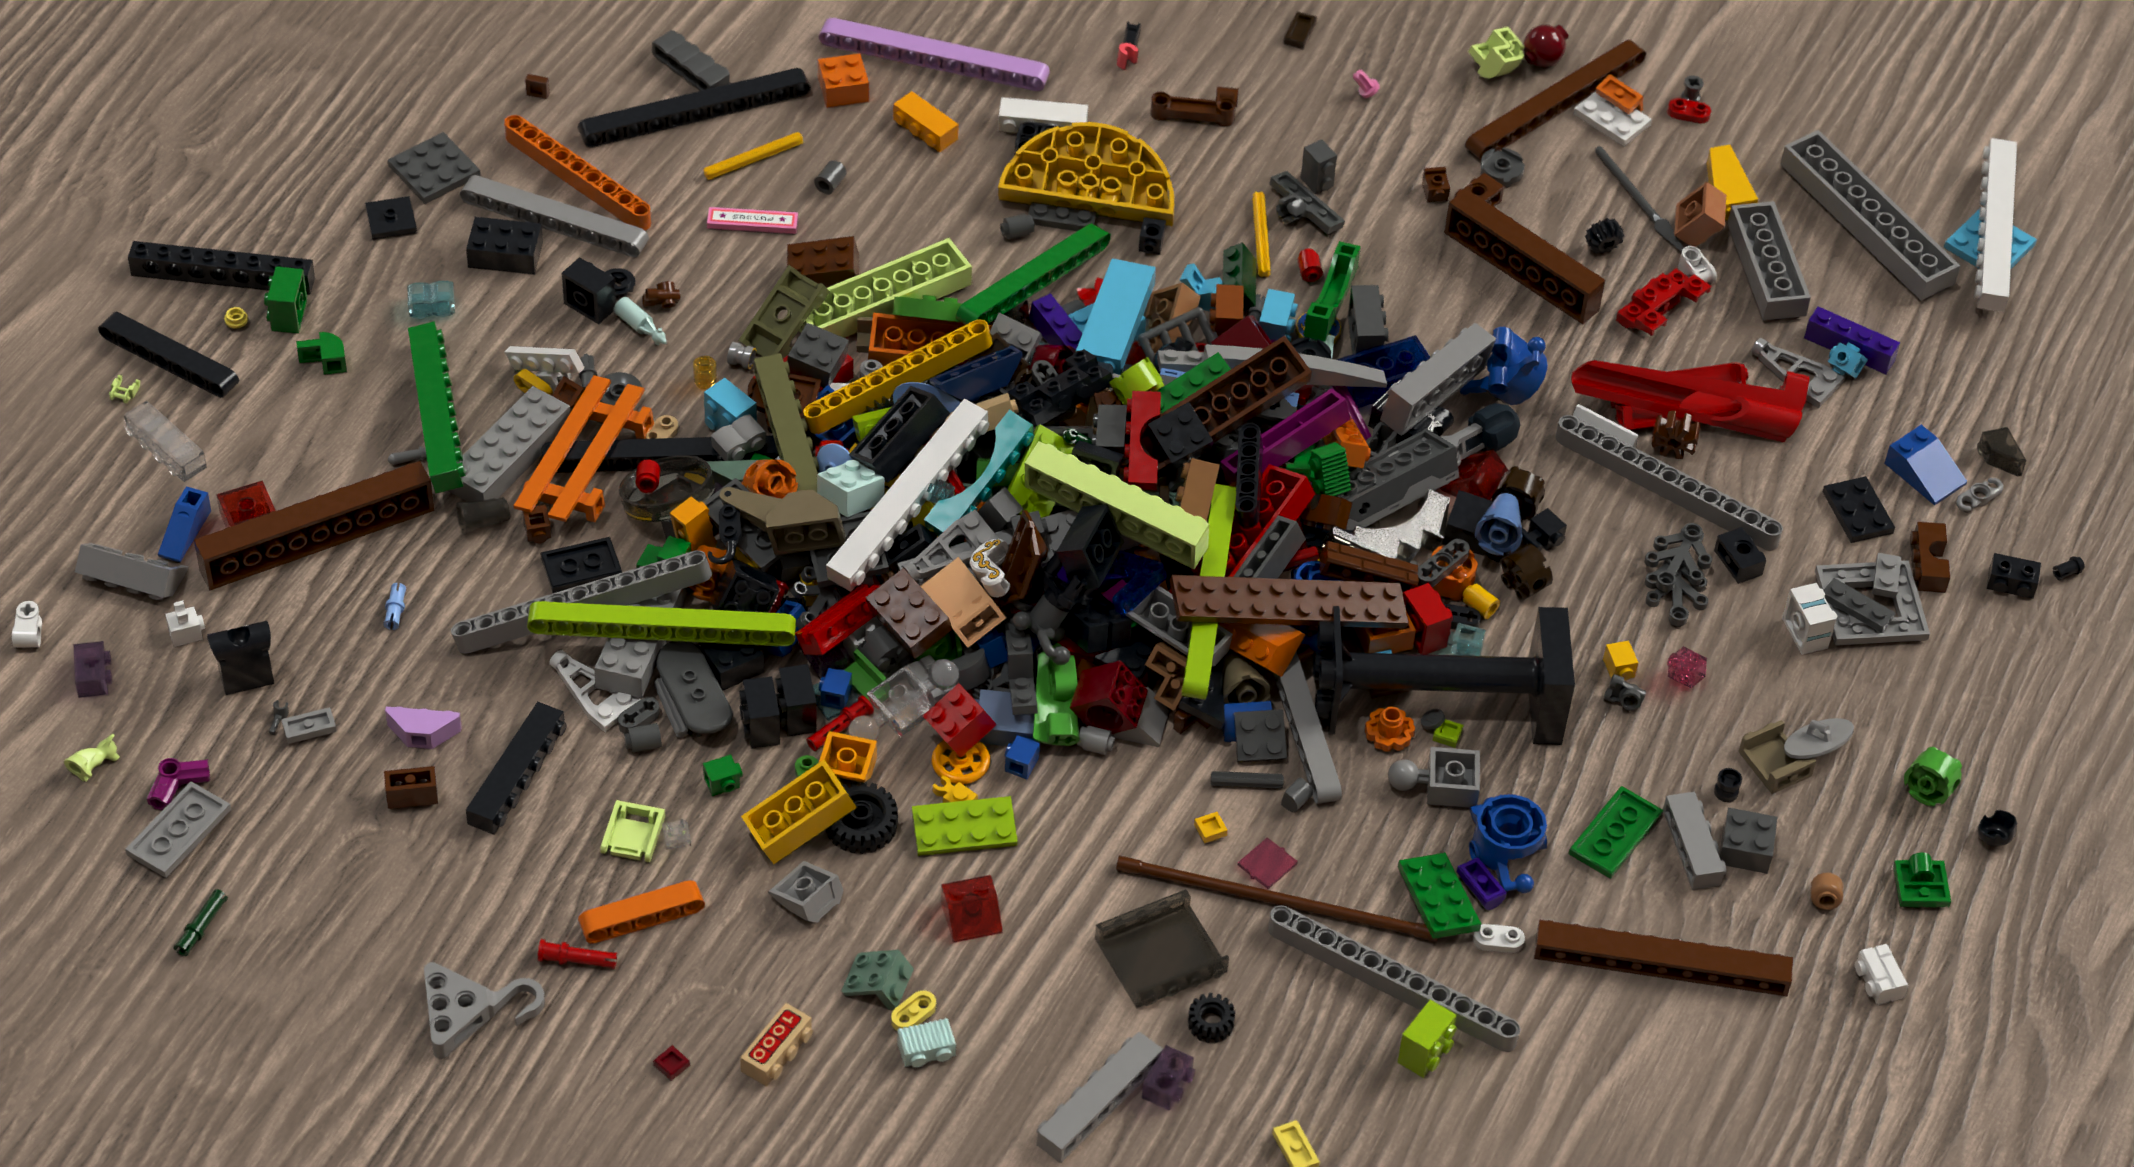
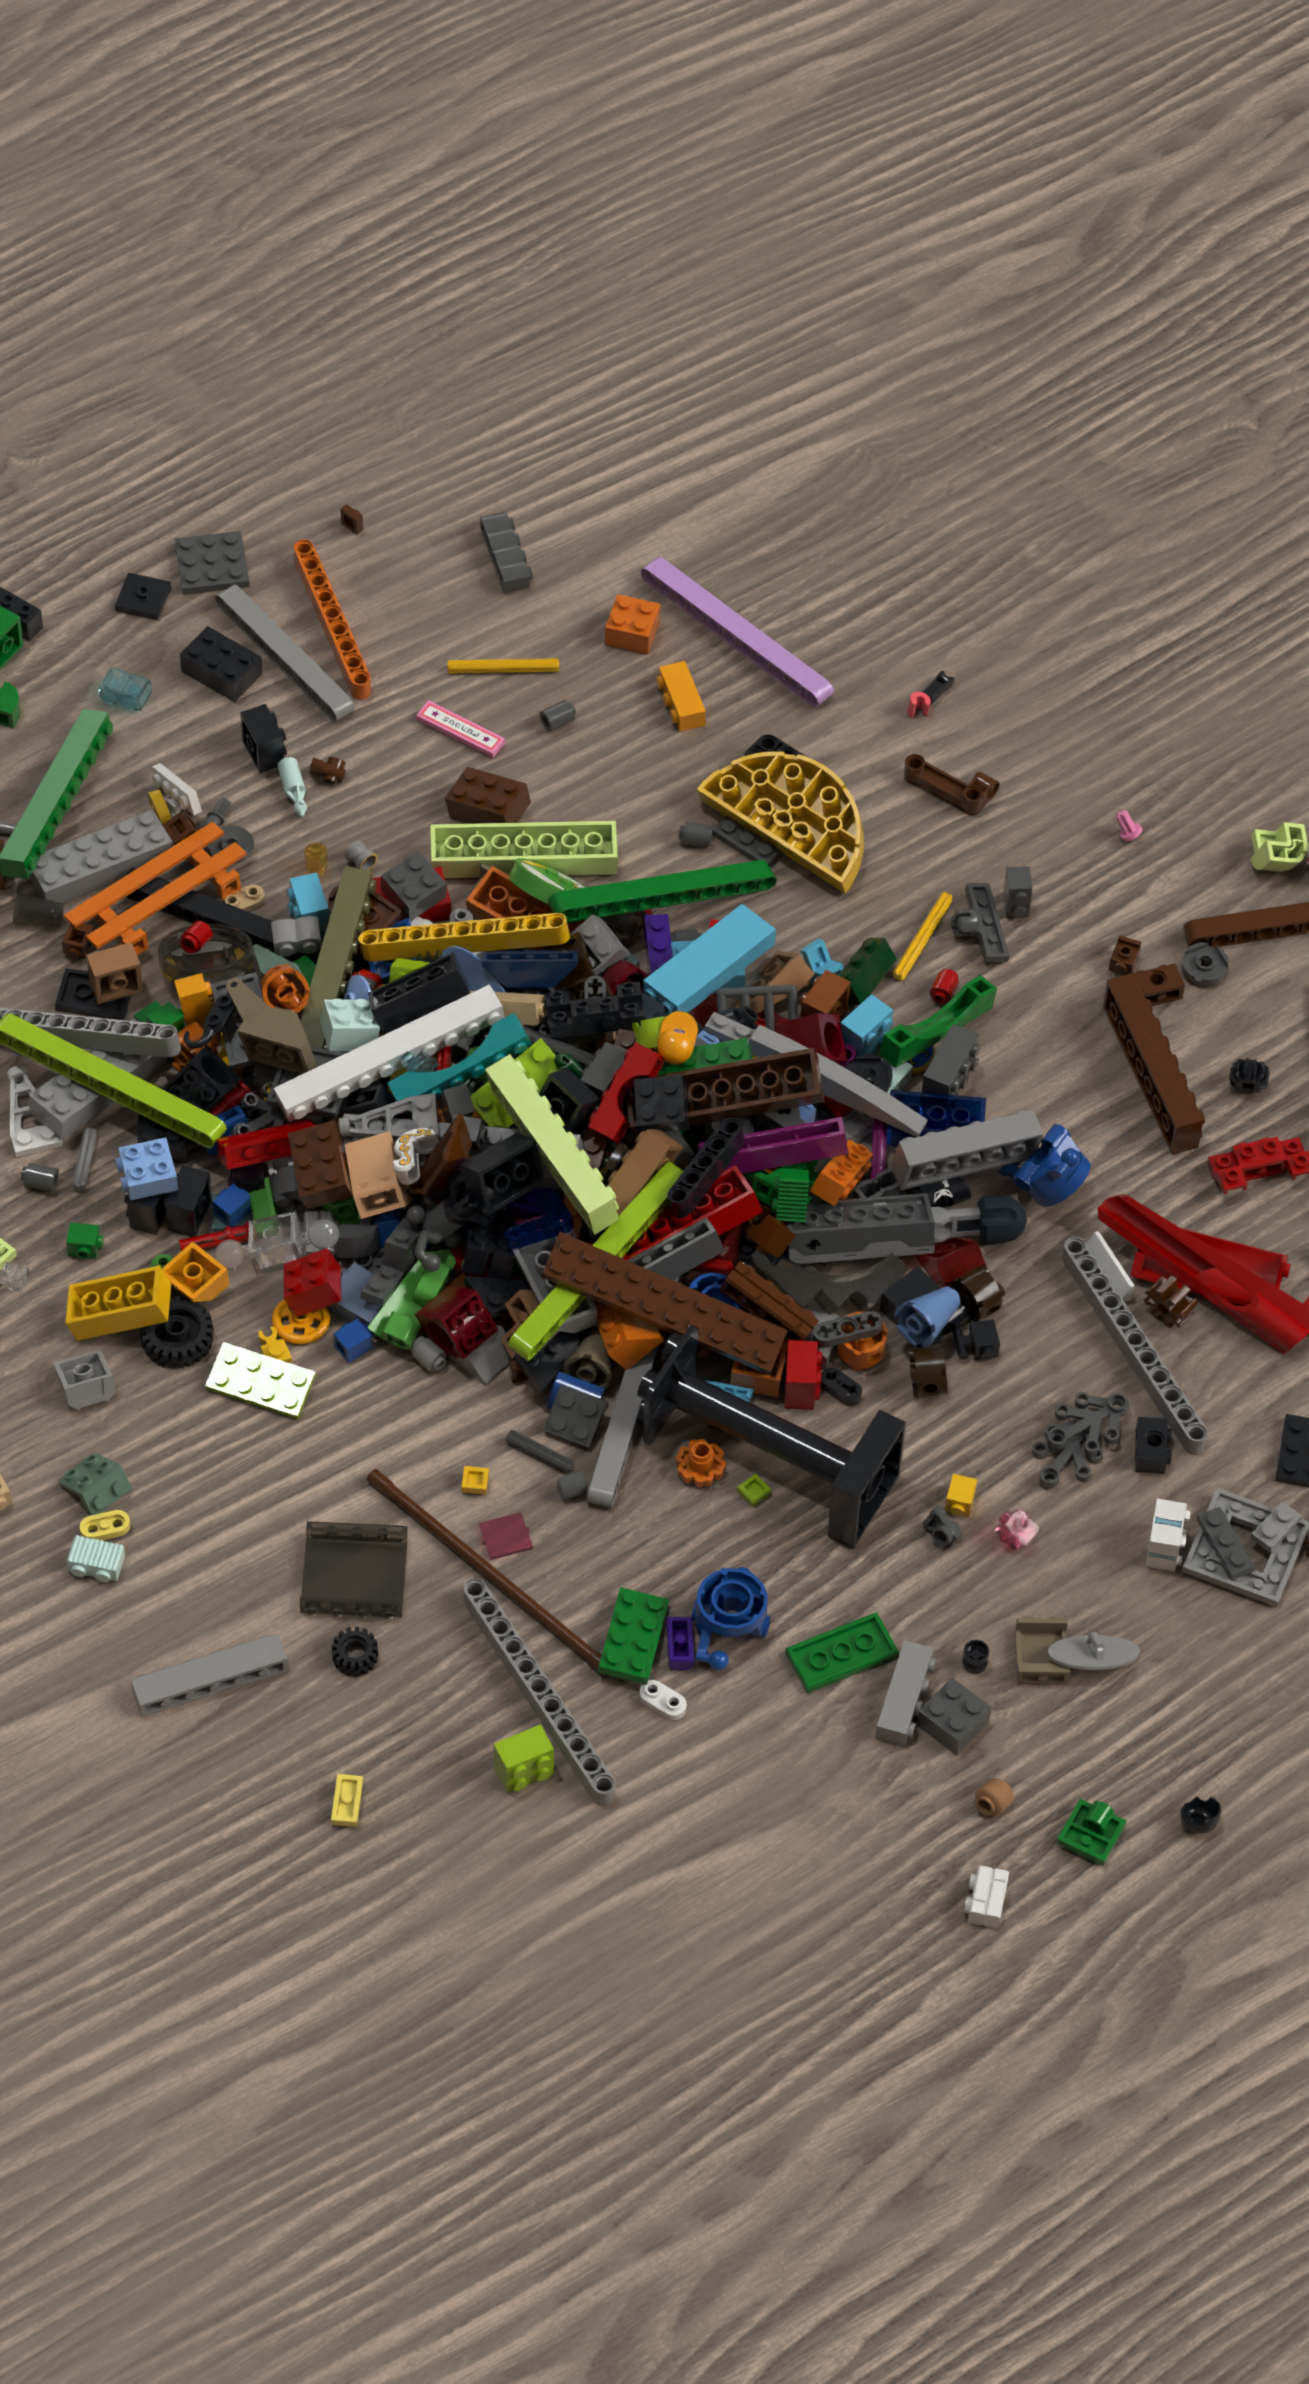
camera: 30 degrees right, 5 degrees up
(597, 534) = (114, 973): none -> medium nougat brick
(624, 278) = (308, 737): black gear -> none
(638, 715) = (52, 1154): dark grey beam -> none
(693, 107) = (480, 596): black beam -> none
(693, 687) = (109, 1129): dark grey piece -> none
(756, 681) = (146, 1169): none -> light blue brick
(791, 293) = (432, 818): olive piece -> none
(971, 908) = (214, 1457): clear red slope -> none
(1017, 111) = (794, 732): white brick -> none
(1152, 235) = (815, 895): black brick -> none
(1162, 374) = (677, 1037): none -> light orange cap
(1165, 1076) = (275, 1682): clear purple brick -> none
(1300, 30) = (1107, 745): dark brown tile -> none
(1432, 719) = (747, 1471): dark grey piece -> none
(1450, 776) = (717, 1533): light grey brick -> none
(1467, 640) = (830, 1413): clear light blue brick -> none
(1481, 600) = (871, 1380): yellow brick -> none
(1663, 958) = (797, 1787): reddish brown brick -> none
(1933, 776) = (1172, 1737): bright green brick -> none

